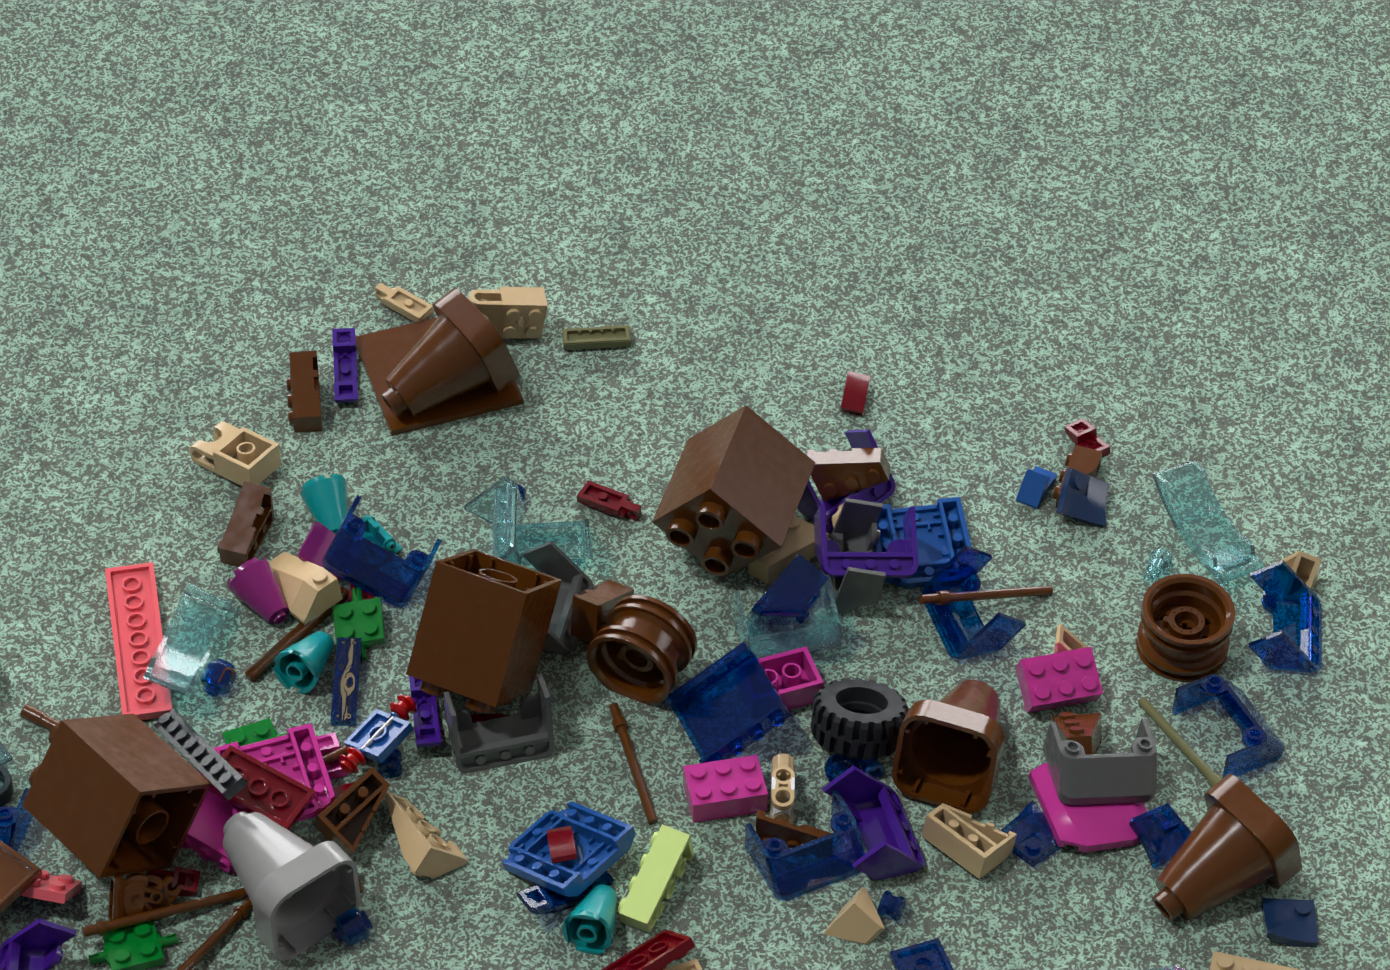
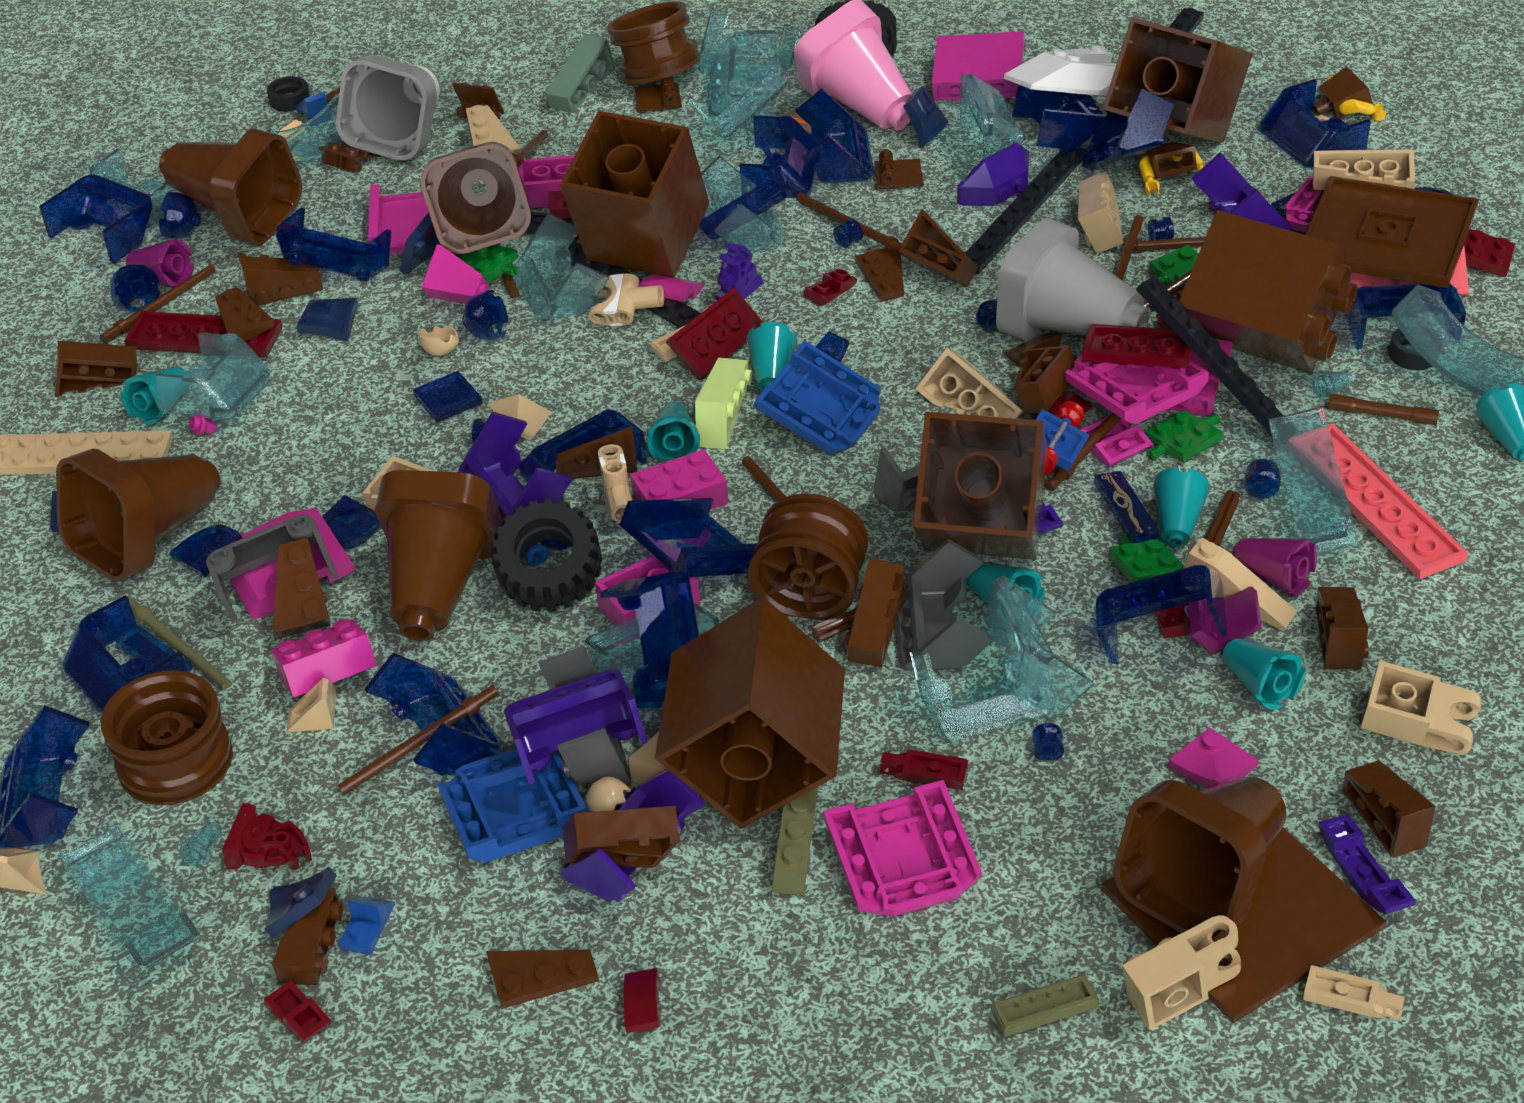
camera: 170 degrees right, 5 degrees down
(379, 536) = (1186, 665): teal hinge -> none
(401, 462) = (1212, 760): none -> dark pink plate
(561, 844) = (825, 392): dark red slope -> none
(644, 445) = (903, 851): none -> dark pink wedge
(713, 851) = (673, 433): none -> teal cone
(920, 428) = (539, 973): none -> reddish brown wing
(1108, 553) = (263, 841): none -> dark red piece
(1202, 741) = (142, 644): none -> clear blue tile

